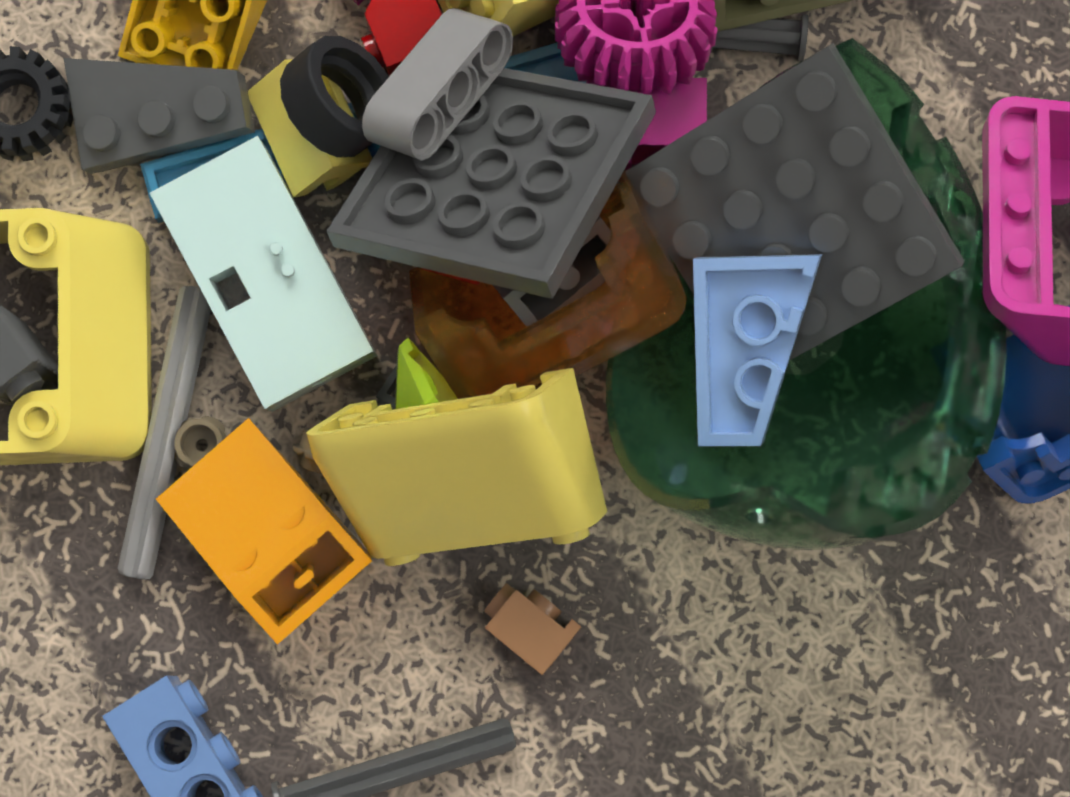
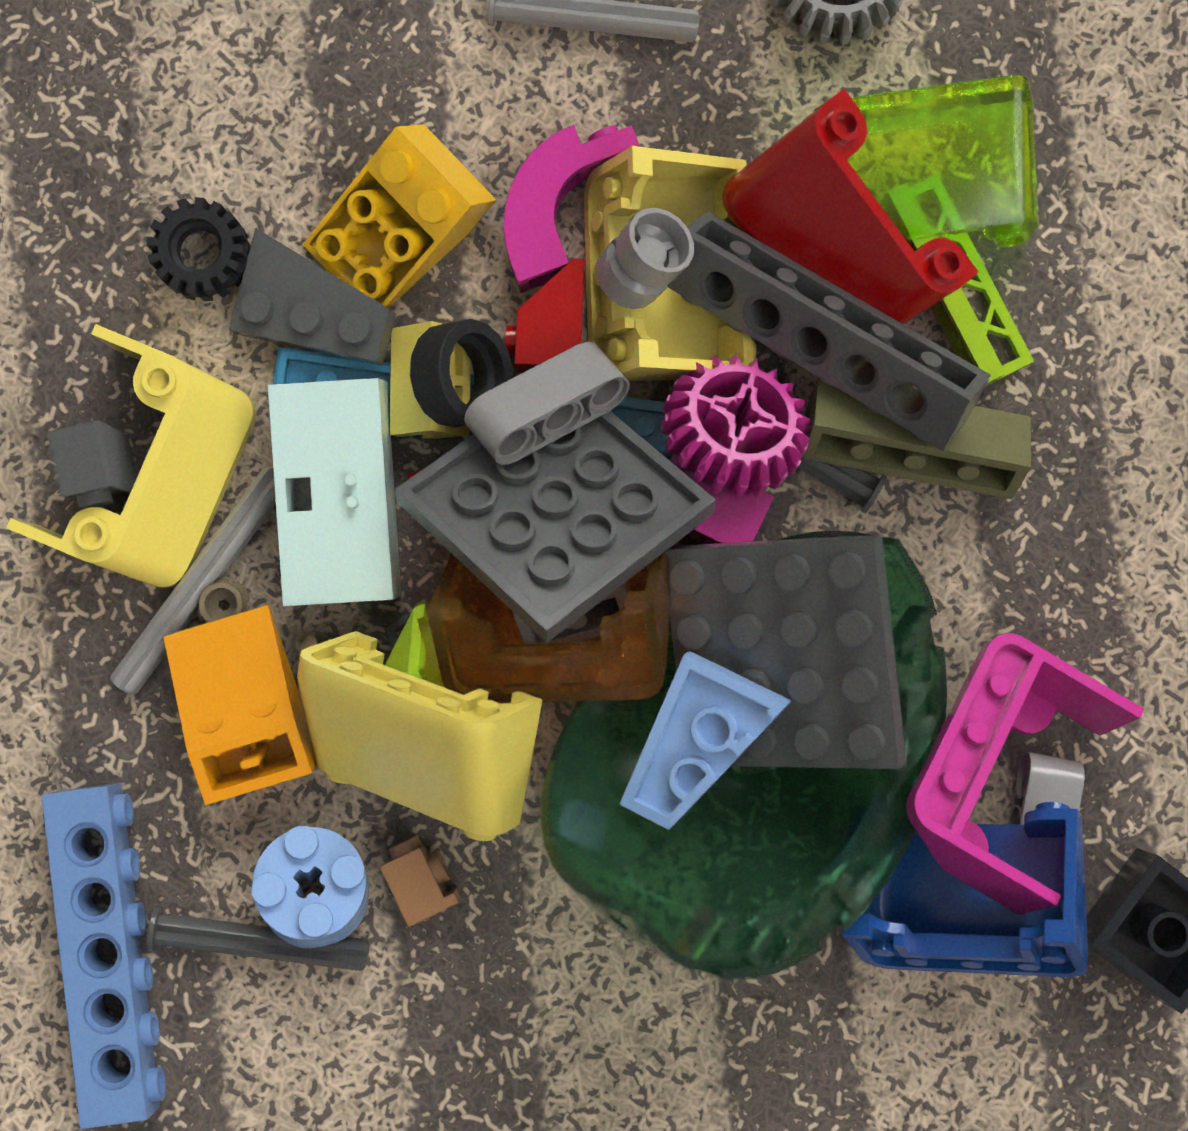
camera: 20 degrees right, 5 degrees up
(404, 654) = (305, 856): none -> light blue brick

